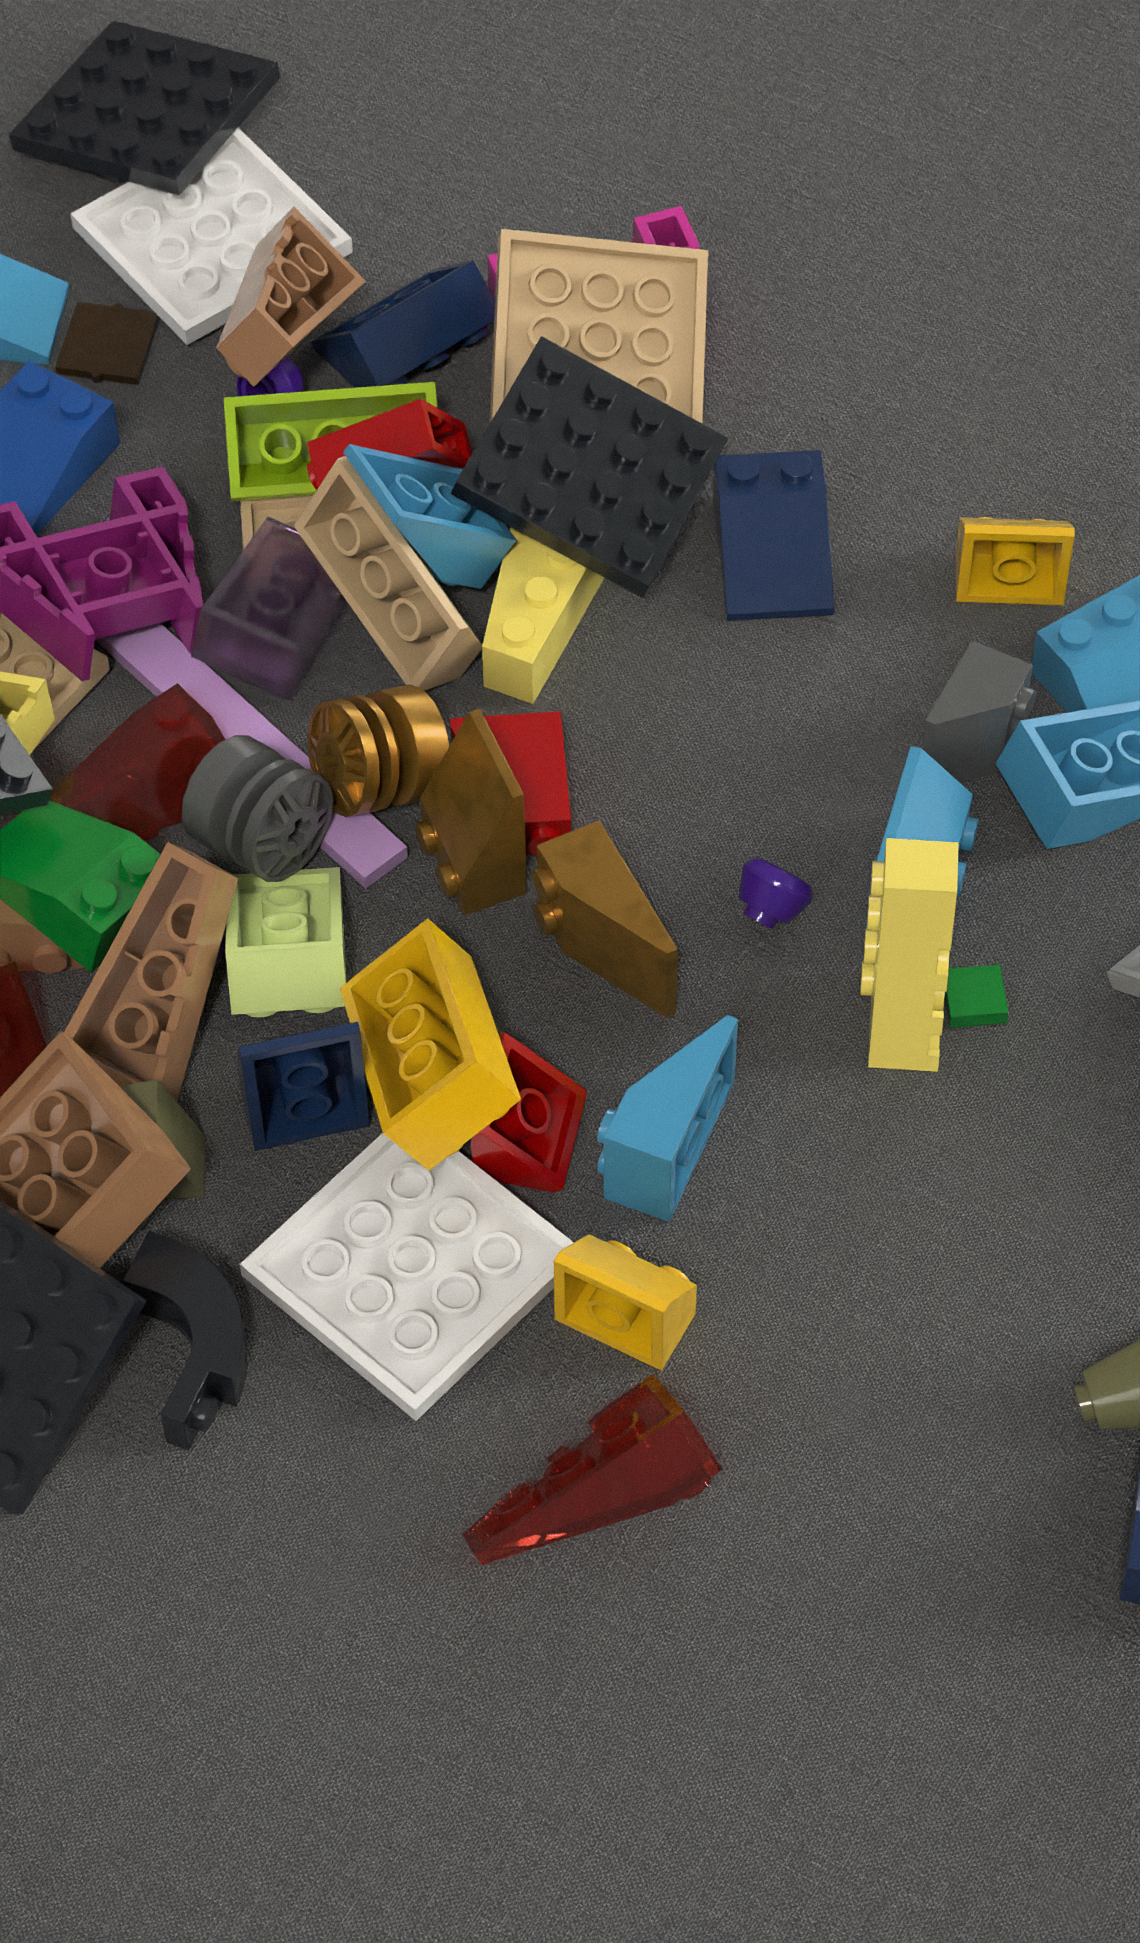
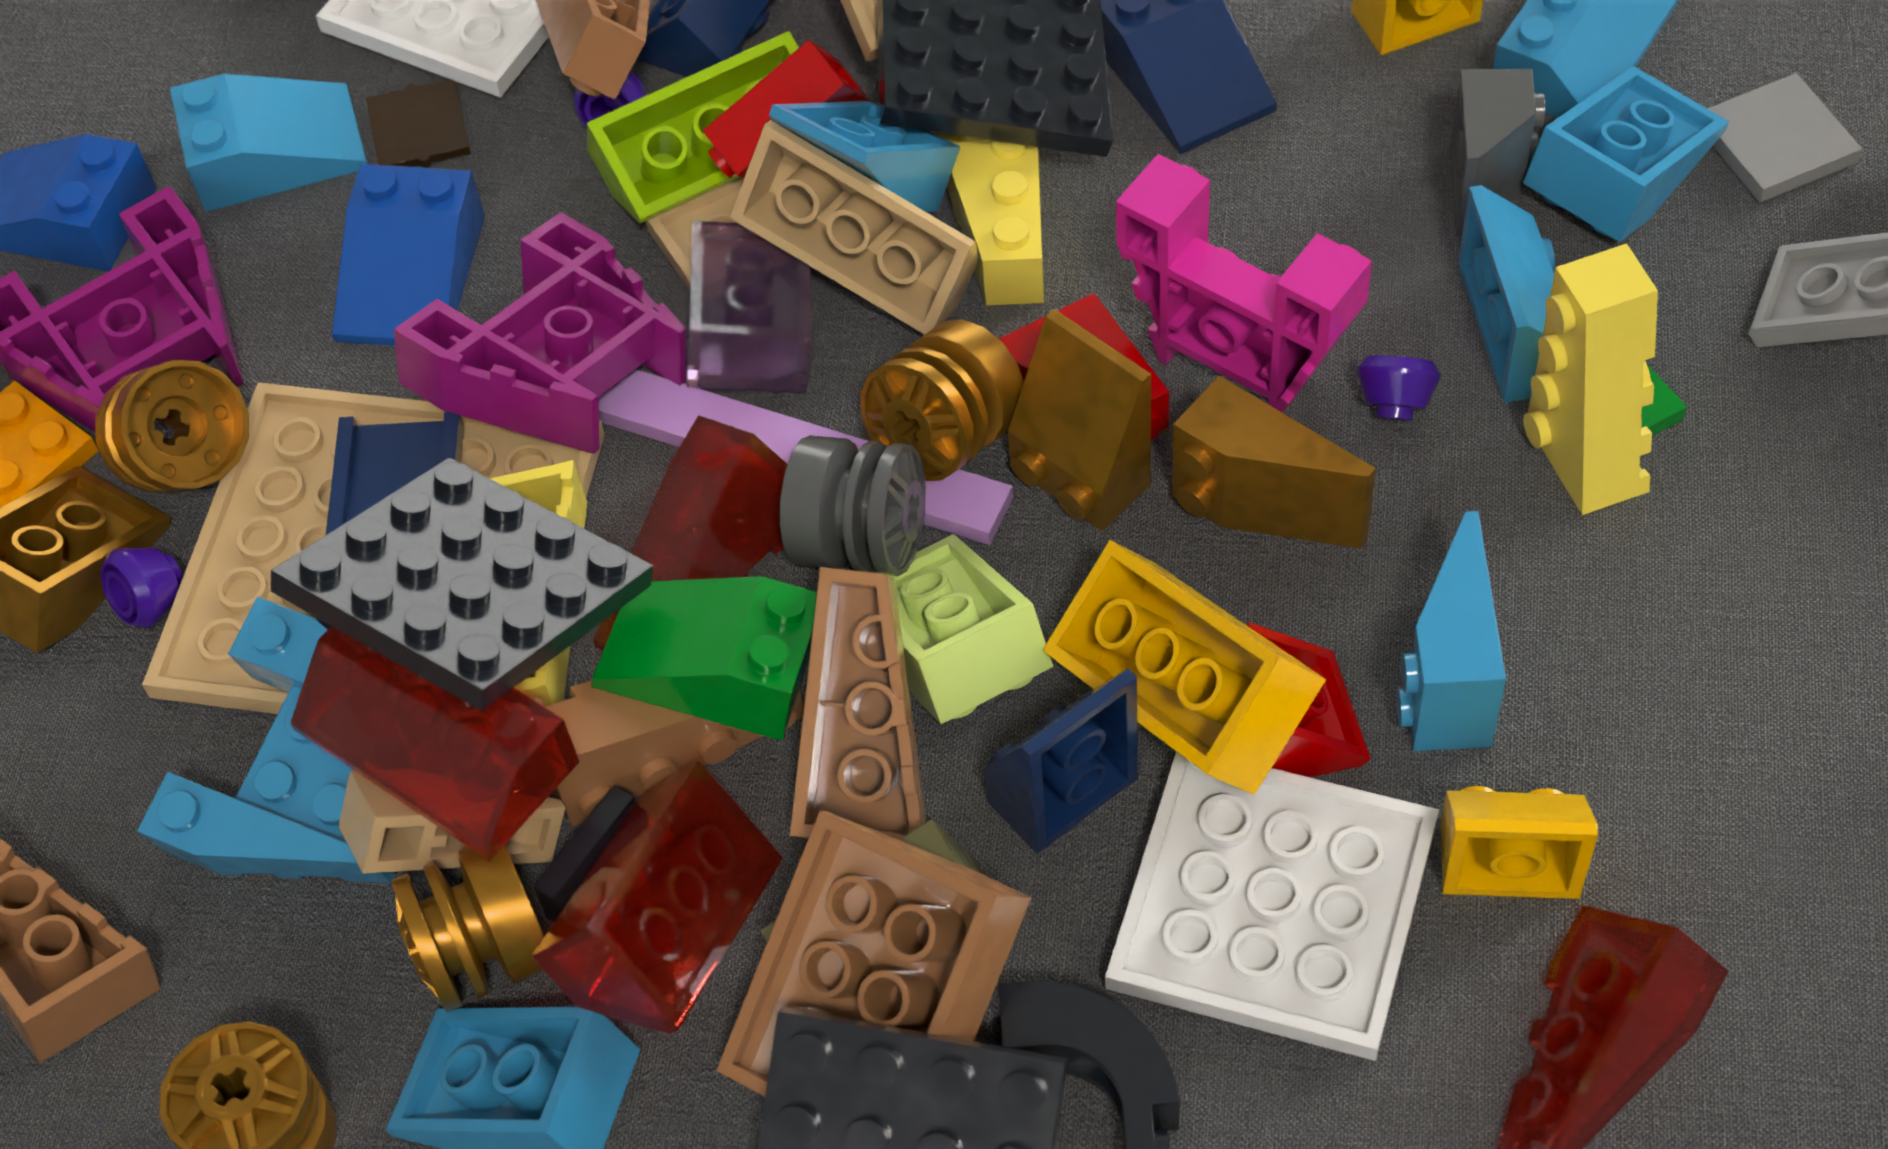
camera: 20 degrees left, 0 degrees up
(675, 797) = (1222, 310): none -> dark pink wedge

